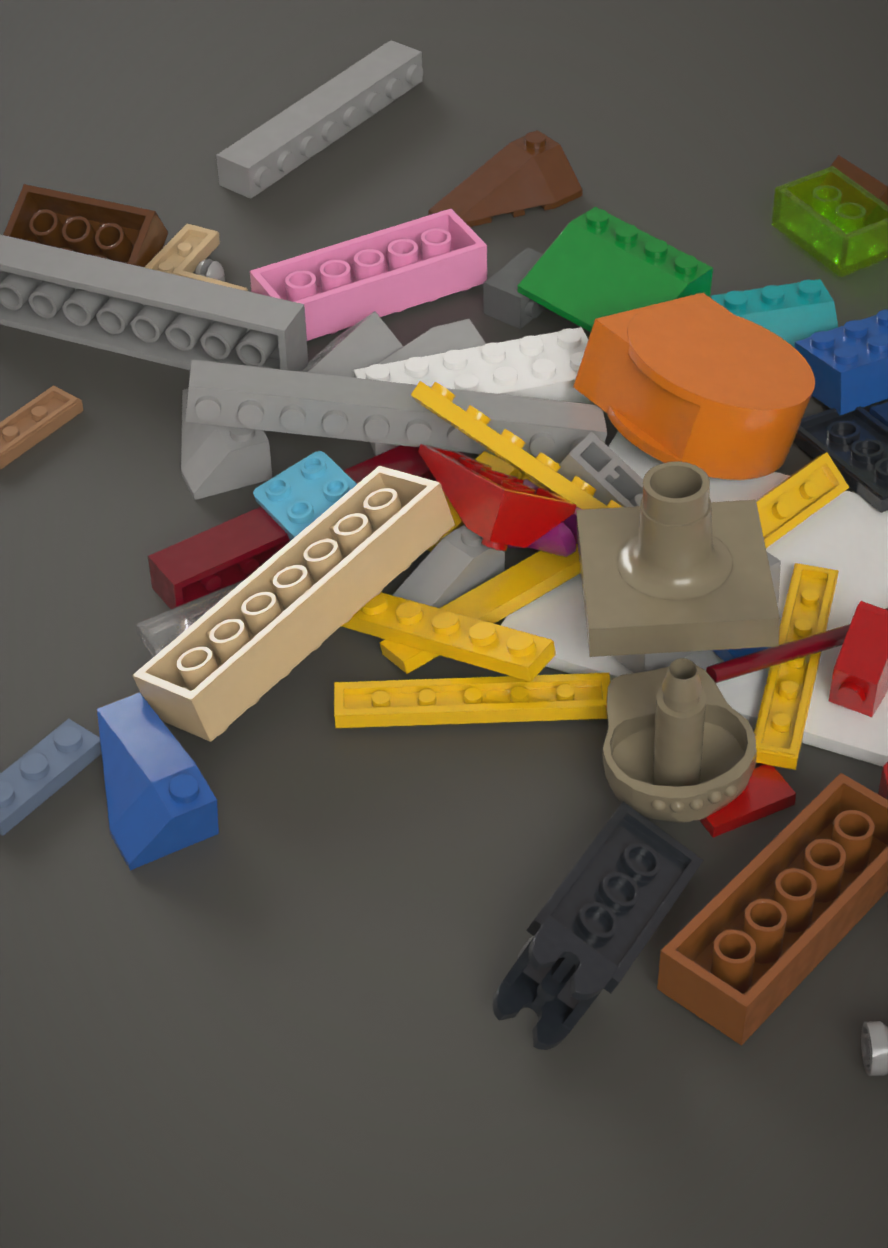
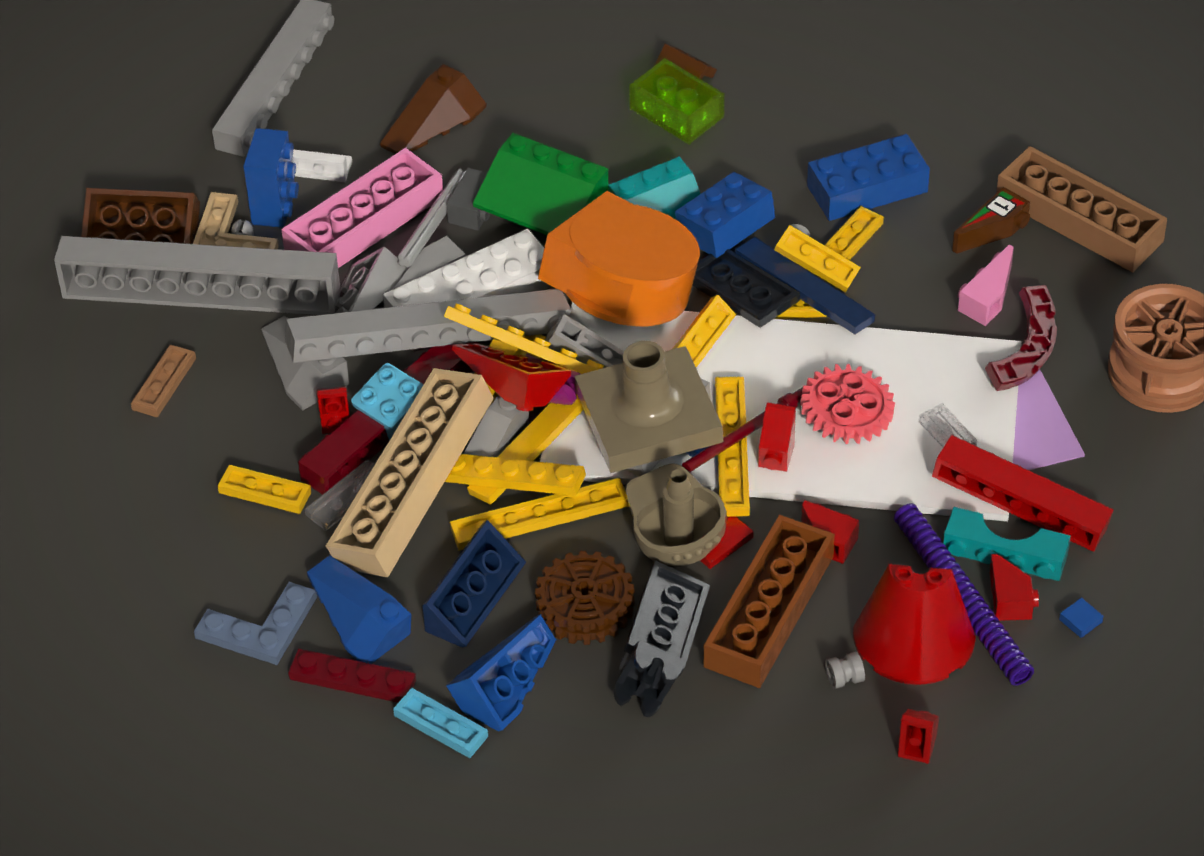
camera: 15 degrees left, 5 degrees up
(92, 587) = (264, 489): none -> yellow plate
(104, 878) = (351, 676): none -> dark red plate
(205, 981) = (440, 723): none -> medium azure plate
(228, 492) = (333, 407): none -> red slope
(260, 208) = (270, 178): none -> blue brick
(321, 936) = (500, 679): none -> blue wedge
(329, 781) = (472, 586): none -> dark blue slope
(339, 217) = (321, 165): none -> white panel
(444, 306) = (429, 222): none -> light grey axle
(499, 836) = (585, 597): none -> reddish brown piece

